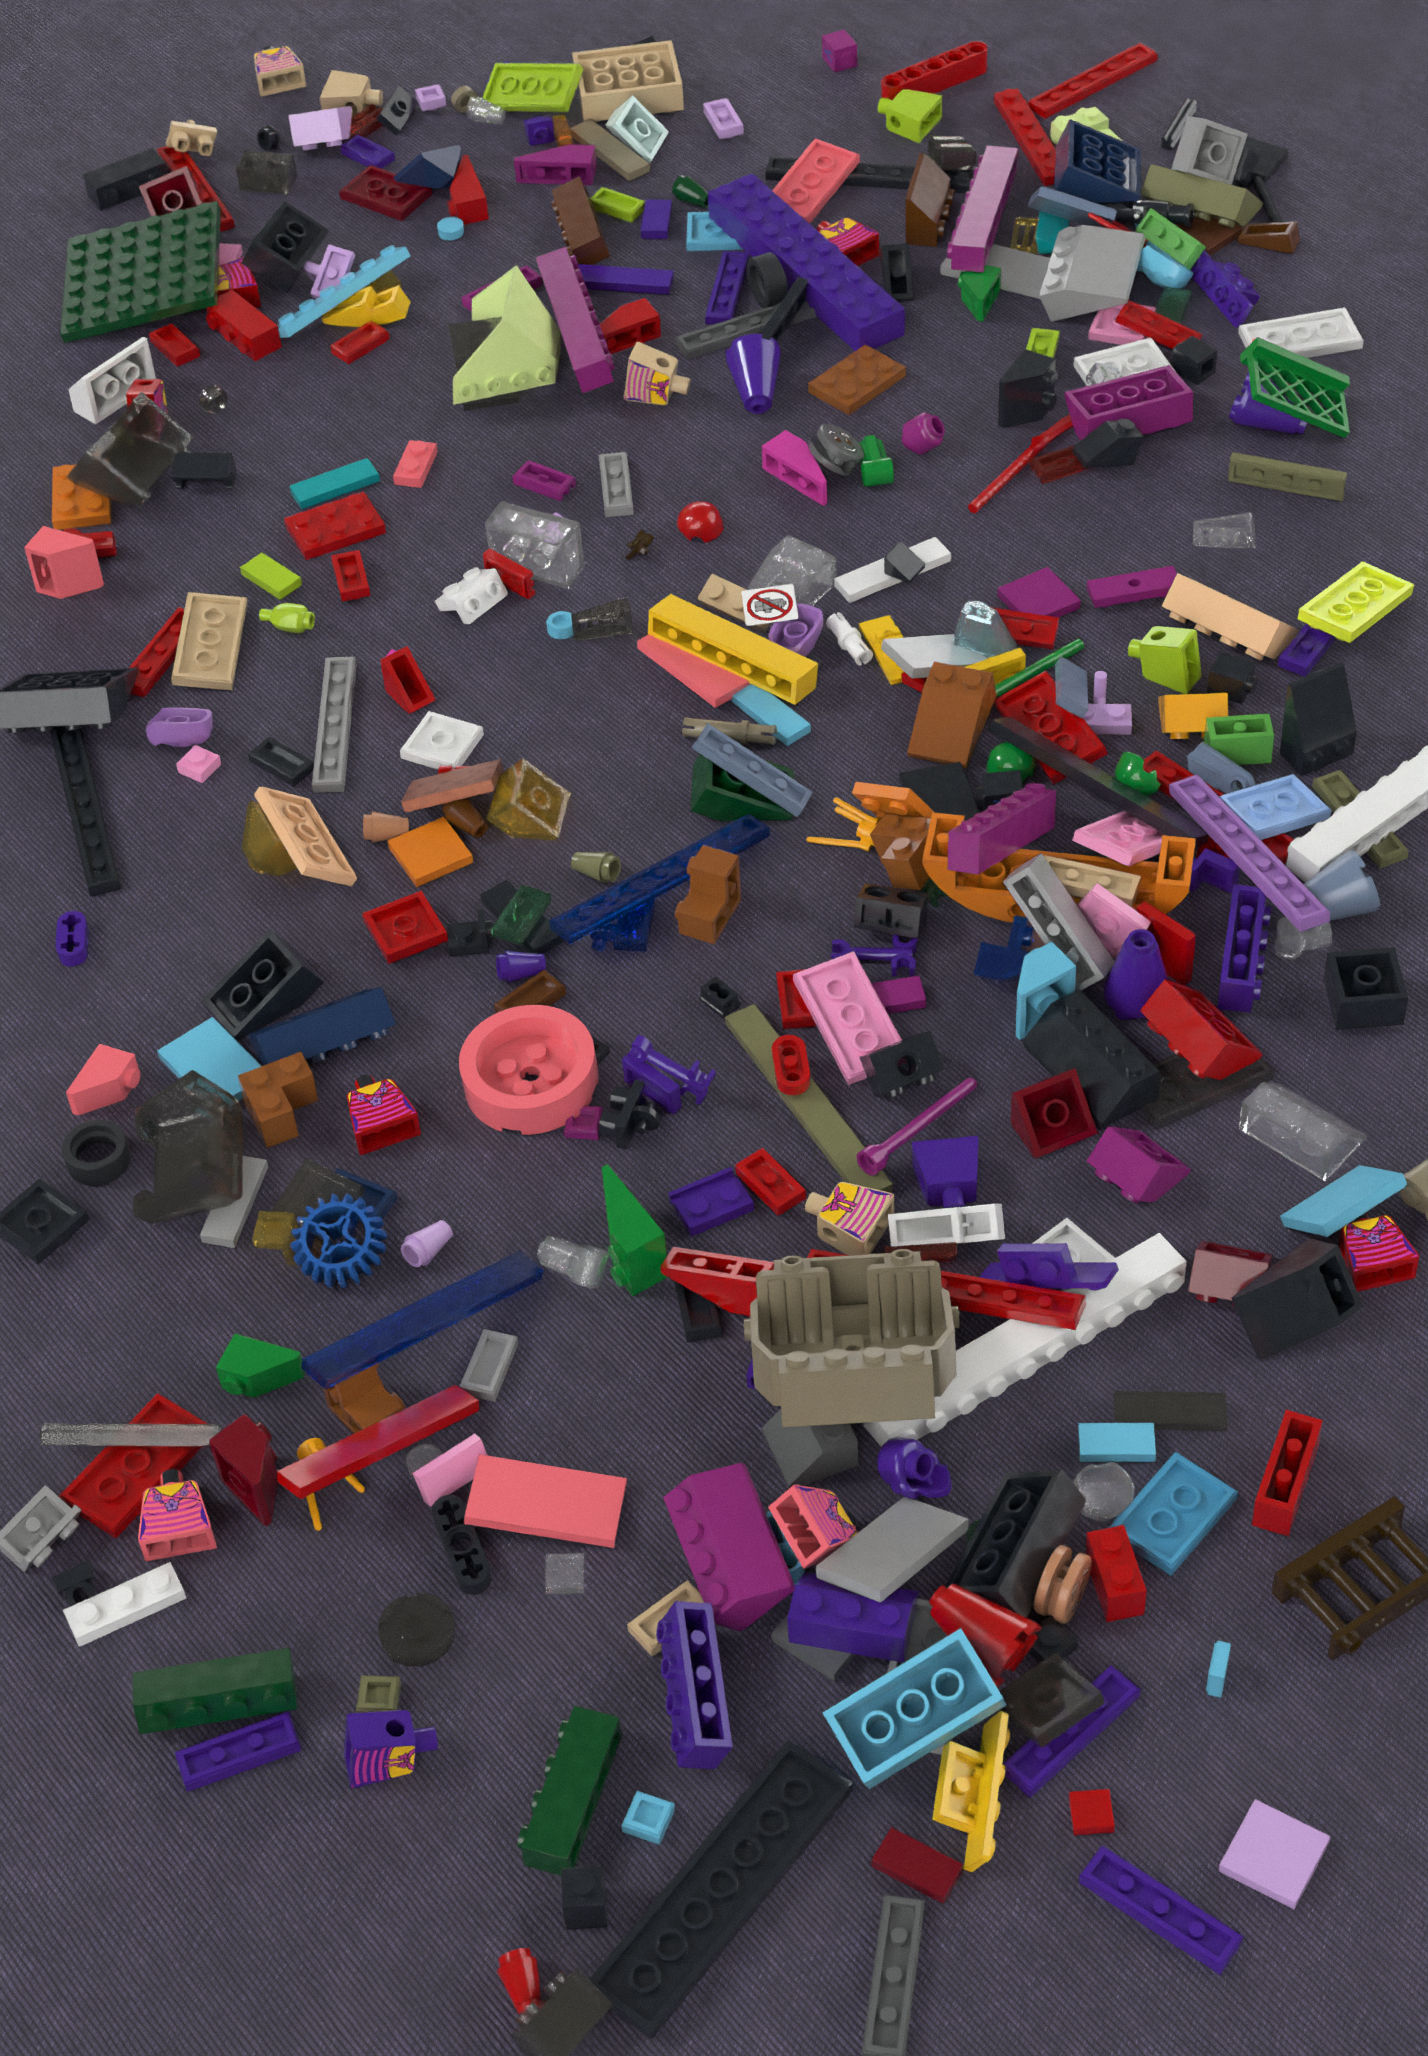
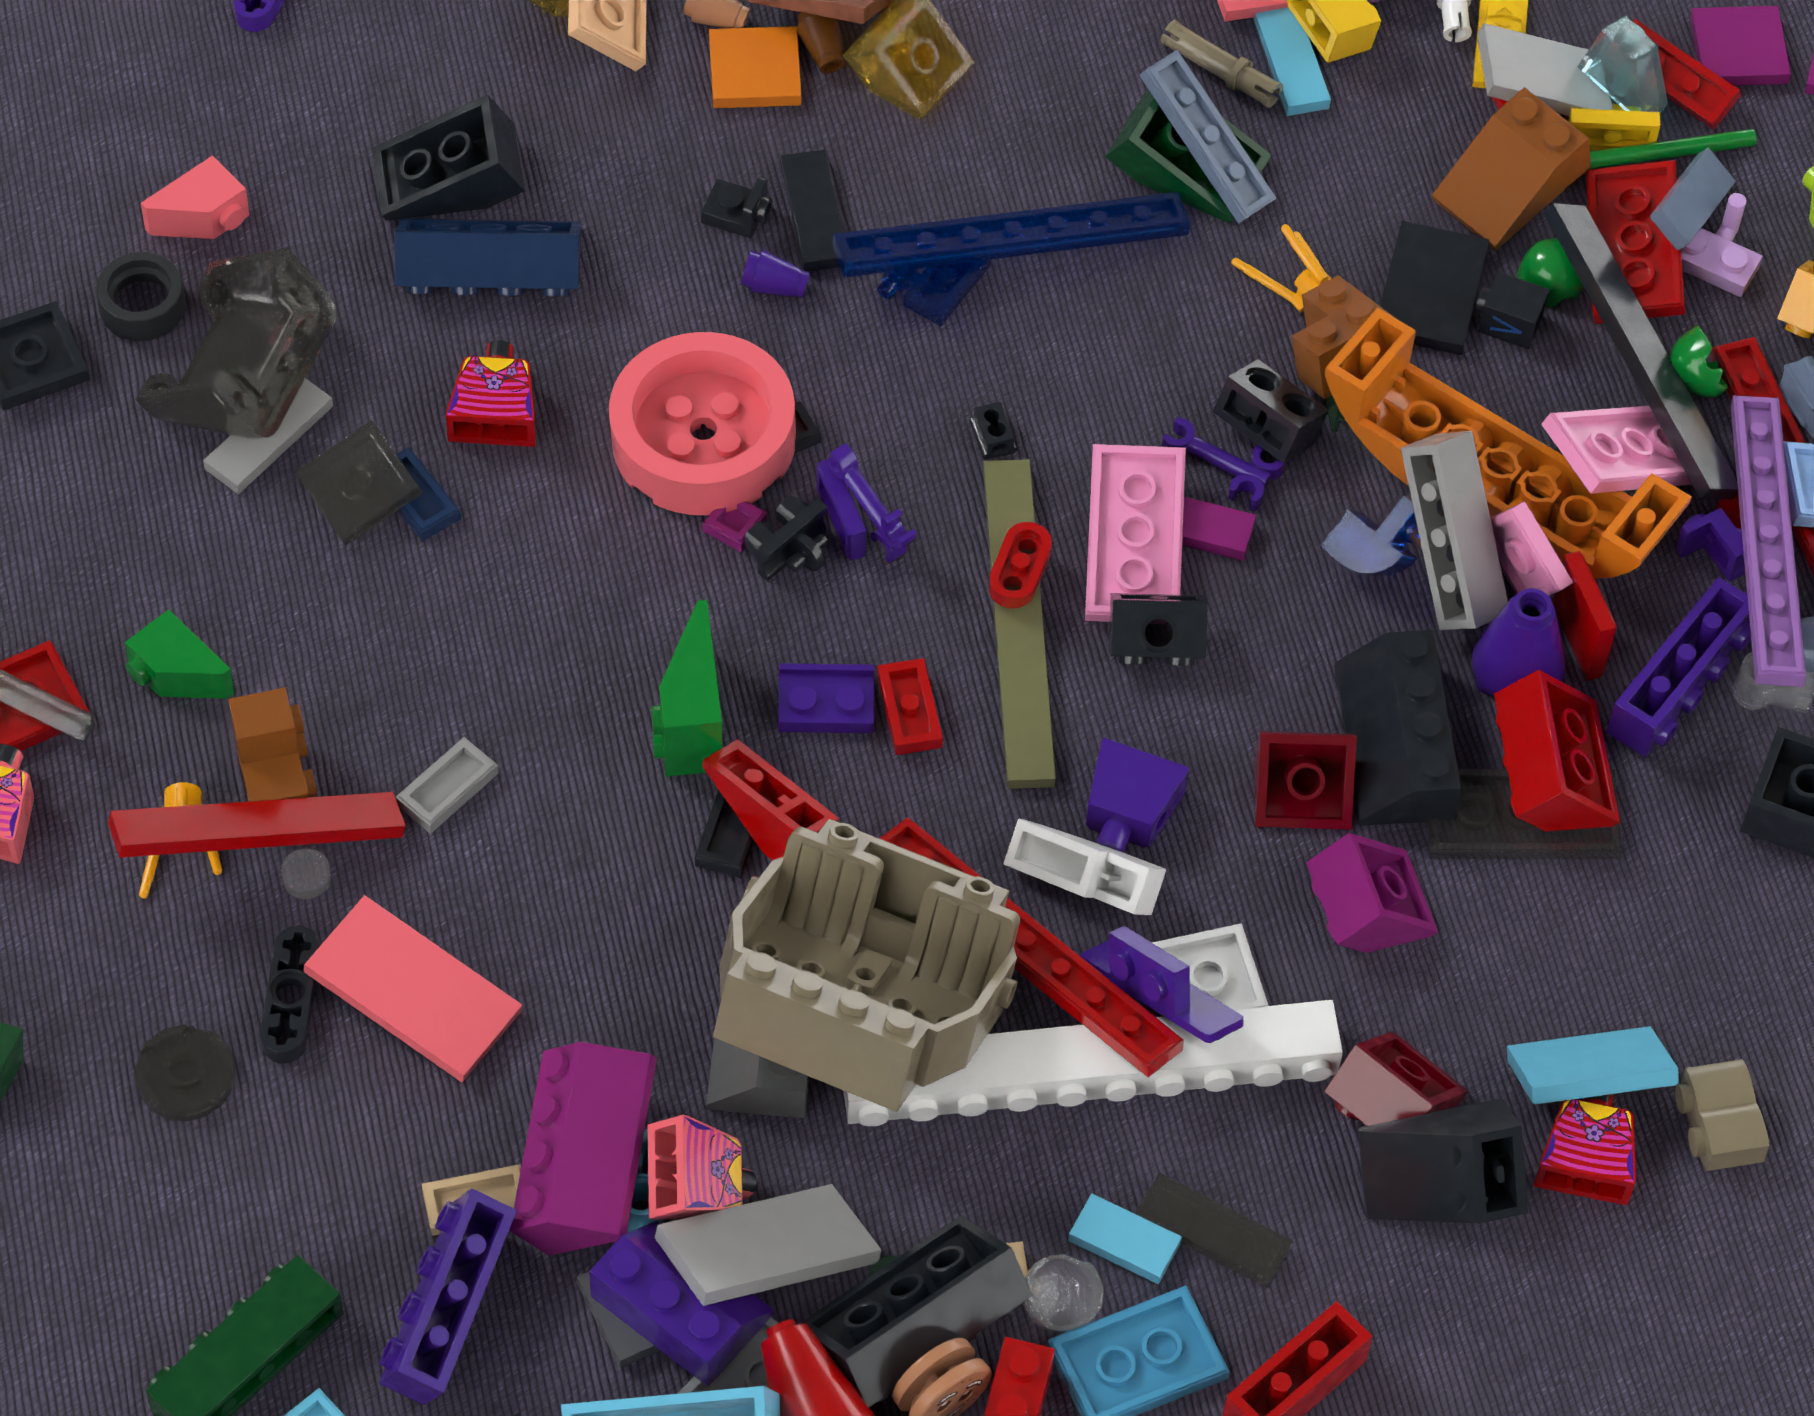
camera: 20 degrees right, 10 degrees up
(211, 1054) = (341, 239): medium azure tile -> none
(247, 1465) = (99, 781): dark red slope -> none
(274, 1093) = (386, 313): dark orange brick -> none
(274, 1231) = (288, 502): clear yellow panel -> none
(328, 1265) = (337, 555): blue gear -> none
(378, 1694) = (98, 1133): olive tile -> none
(383, 1746) = (65, 1196): dark purple torso -> none
(405, 927) = (664, 159): red plate -> none
(421, 1320) = (385, 696): clear blue tile -> none
(426, 1243) = (457, 595): lavender cone -> none
(449, 1470) = (323, 897): bright pink tile -> none
(521, 914) = (810, 208): clear green plate -> none
(539, 990) = (768, 323): reddish brown tile -> none
(565, 1573) = (388, 1087): clear tile -> none
(580, 1262) = (621, 706): clear piece -> none
(597, 865) = (948, 182): olive cone -> none
(711, 895) = (1058, 291): dark orange brick -> none
(792, 1006) = (1074, 487): red tile -> none
(851, 1217) = (978, 801): tan torso -> none
(875, 1157) = (1050, 735): magenta piece -> none
(890, 800) = (1355, 267): orange plate -> none
(913, 1469) = (857, 1157): dark purple head -> none
(937, 1252) = (1031, 886): clear red tile -> none
(1001, 829) = (1459, 368): magenta brick -> none
(1043, 979) = (1389, 598): medium azure slope -> none
(1081, 877) = (1518, 479): tan plate -> none
(1298, 1129) = (1606, 941): clear slope -> none

